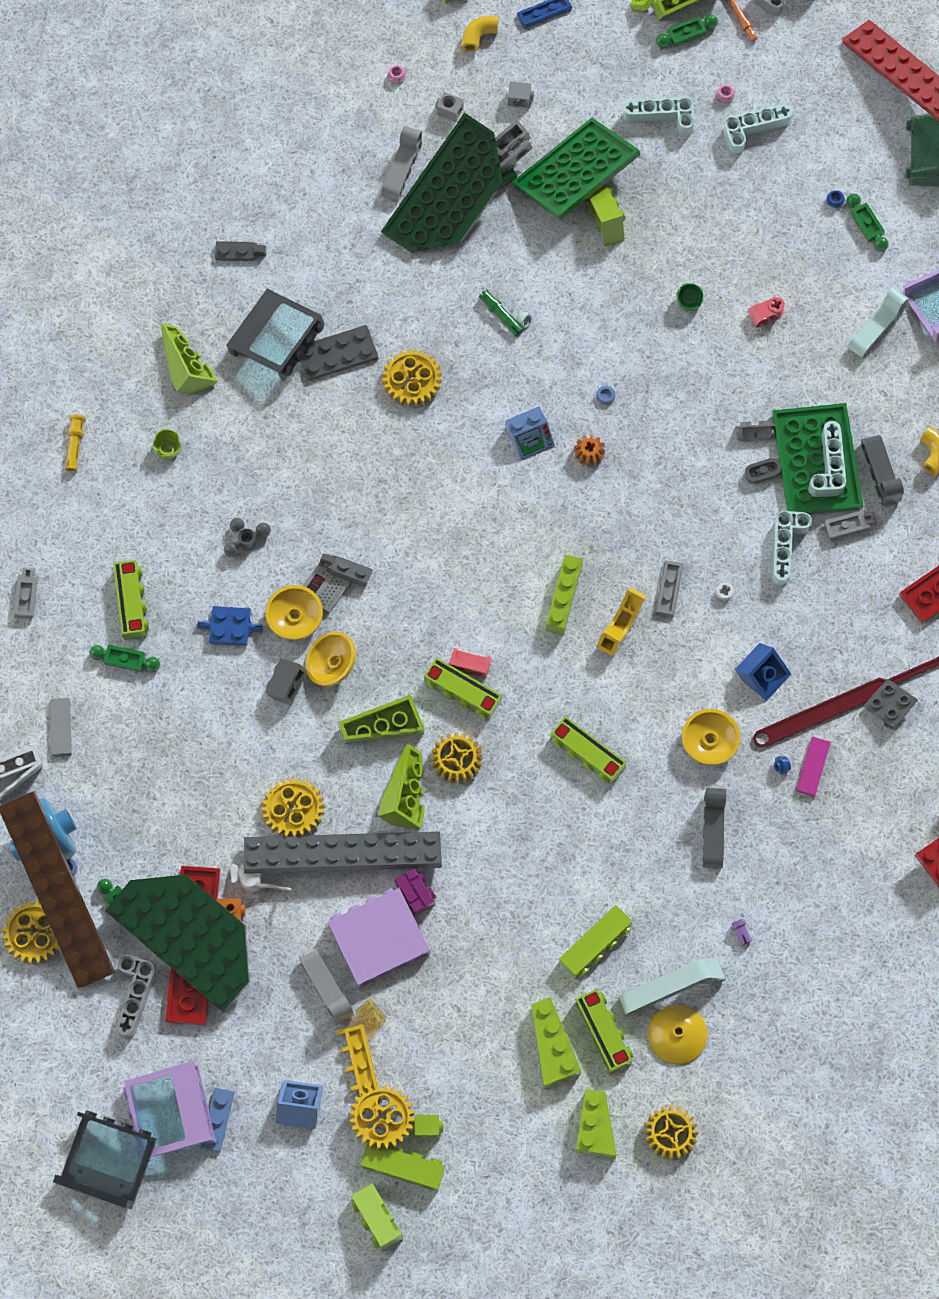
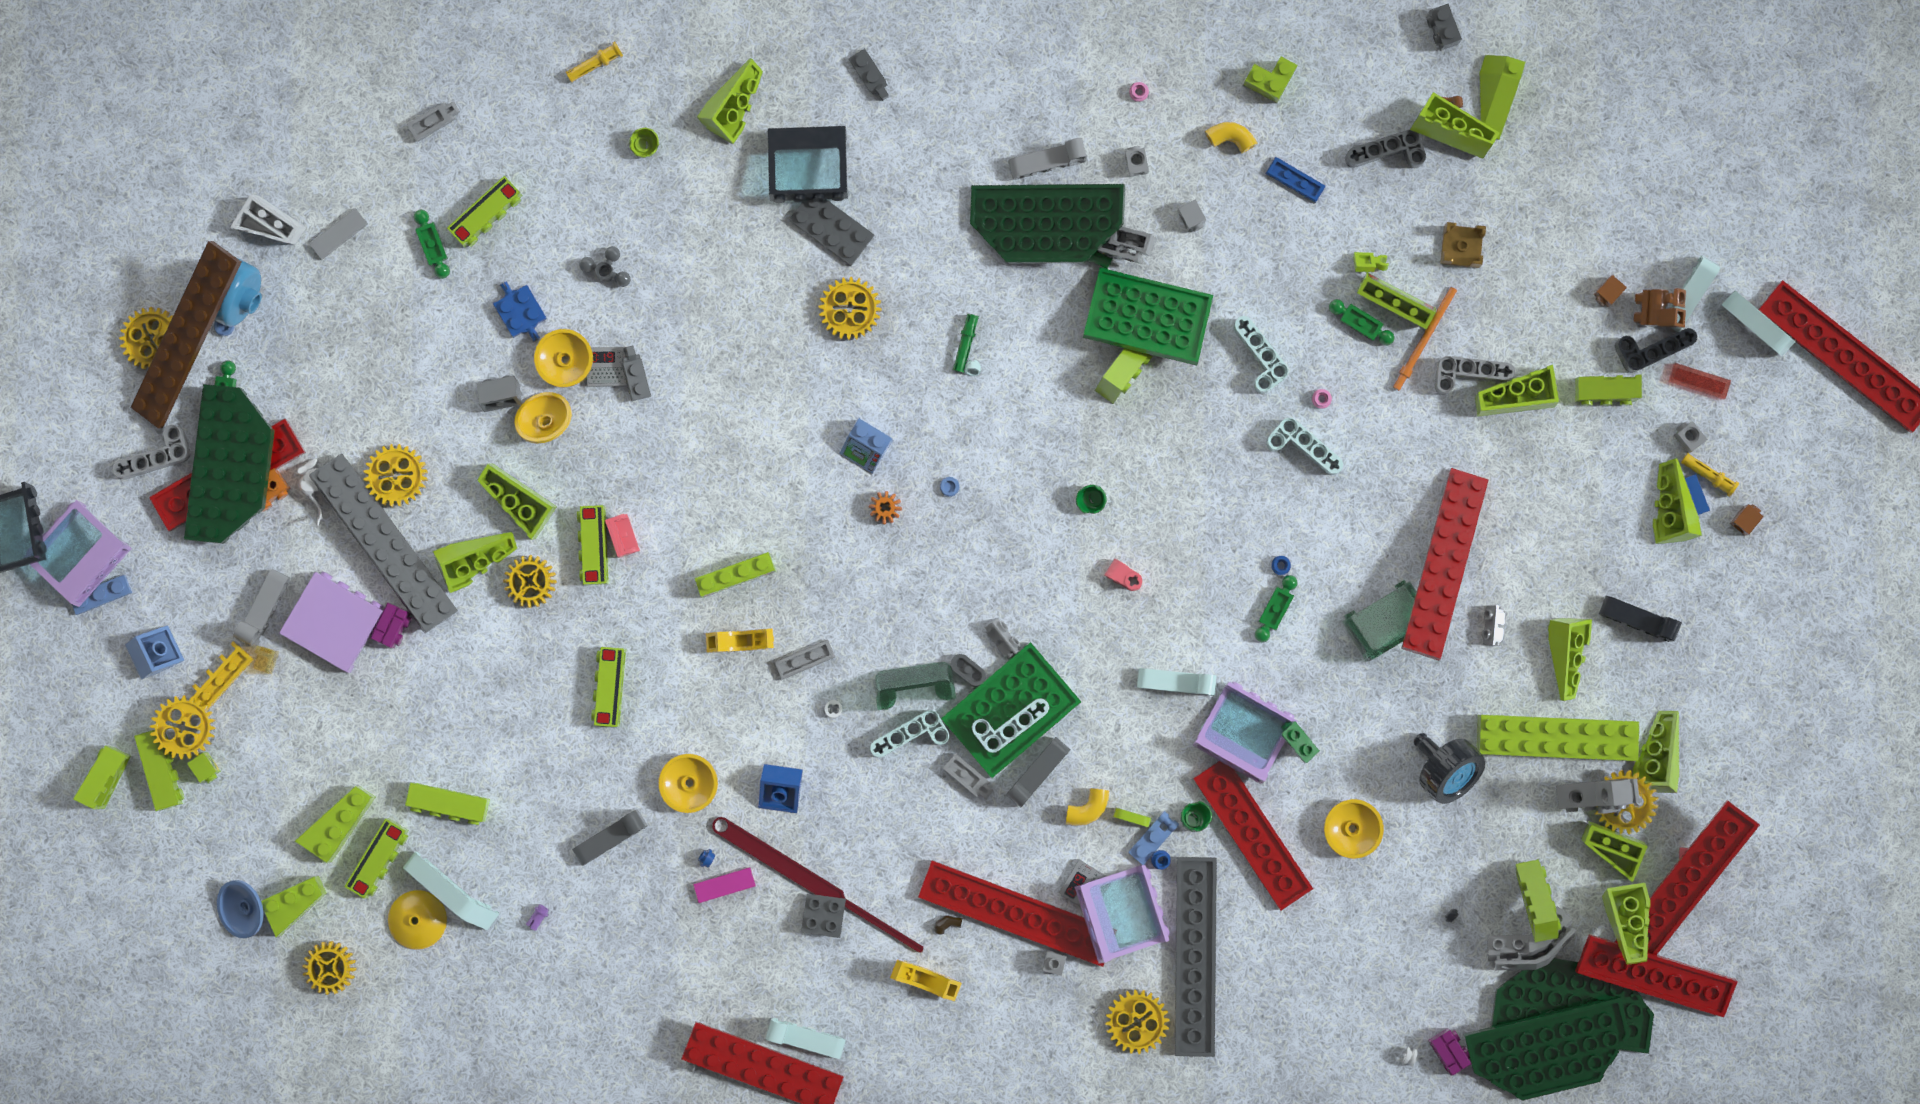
camera: 60 degrees right, 15 degrees up
(568, 1182) = (240, 909): none -> medium blue dish
(737, 532) = (913, 677): none -> windscreen

